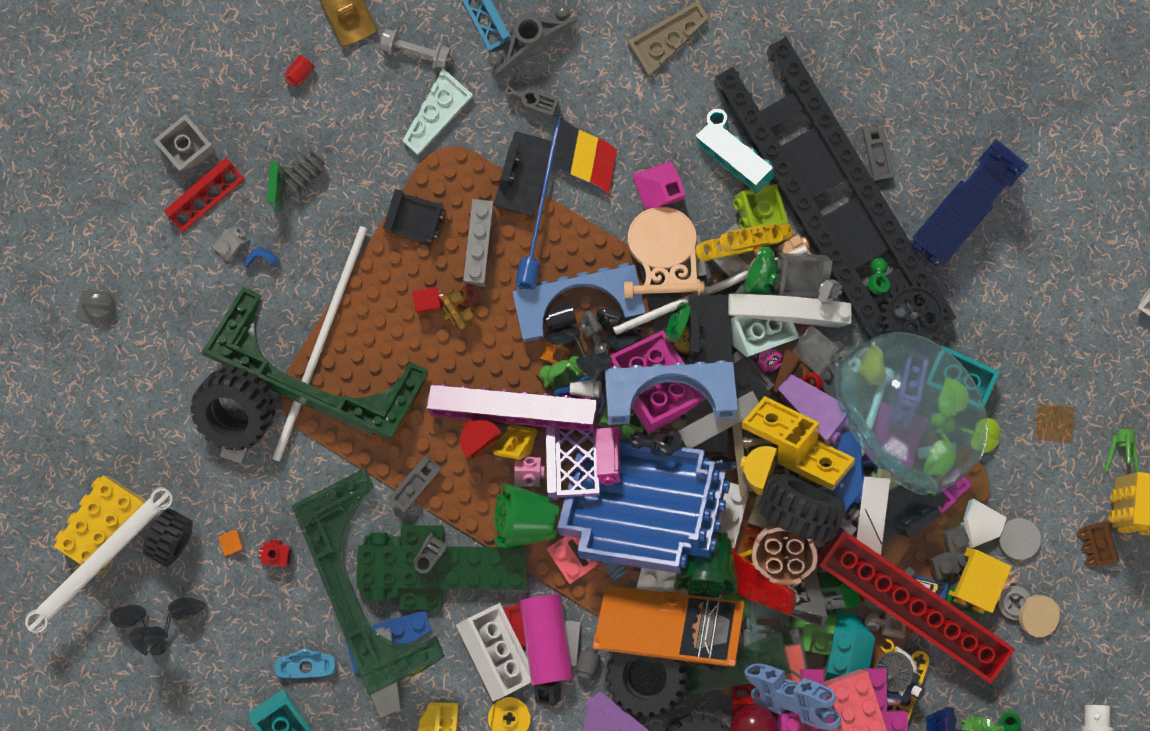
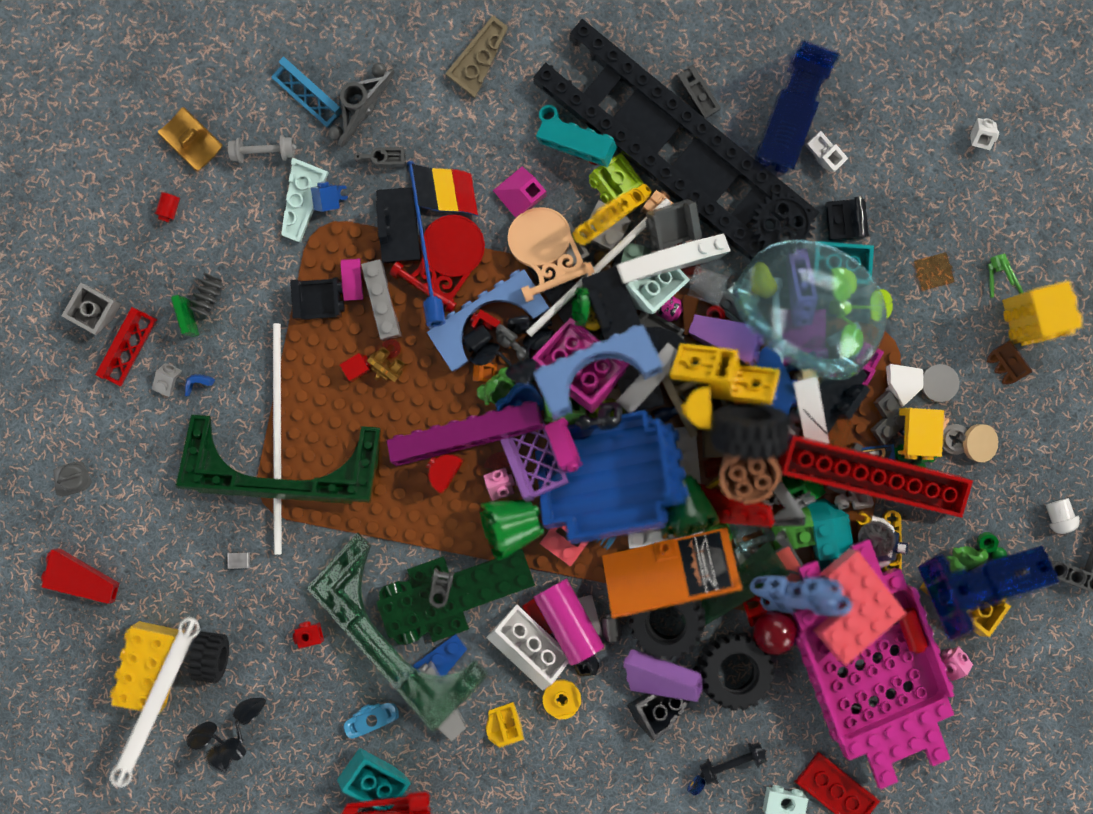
camera: 20 degrees left, 5 degrees up
(62, 406) = (74, 577): none -> red slope
(219, 425) = (217, 543): black tyre -> none
(231, 542) = (267, 638): orange slope -> none
(414, 484) = (405, 530): dark grey plate -> none
(456, 211) = (352, 279): none -> dark pink slope
(463, 119) = (327, 196): none -> blue brick
(515, 442) = (479, 462): yellow slope -> none
(569, 219) = (453, 250): none -> red piece
(578, 304) = (488, 320): none -> red bracket
(587, 388) = (523, 394): white cone -> none
(761, 272) = (638, 235): green animal -> none
(829, 290) = (702, 229): light grey plate -> none
(879, 282) = (741, 207): green plate -> none
(983, 336) = (847, 219): none -> black plate
(985, 261) = (826, 153): none -> white brick

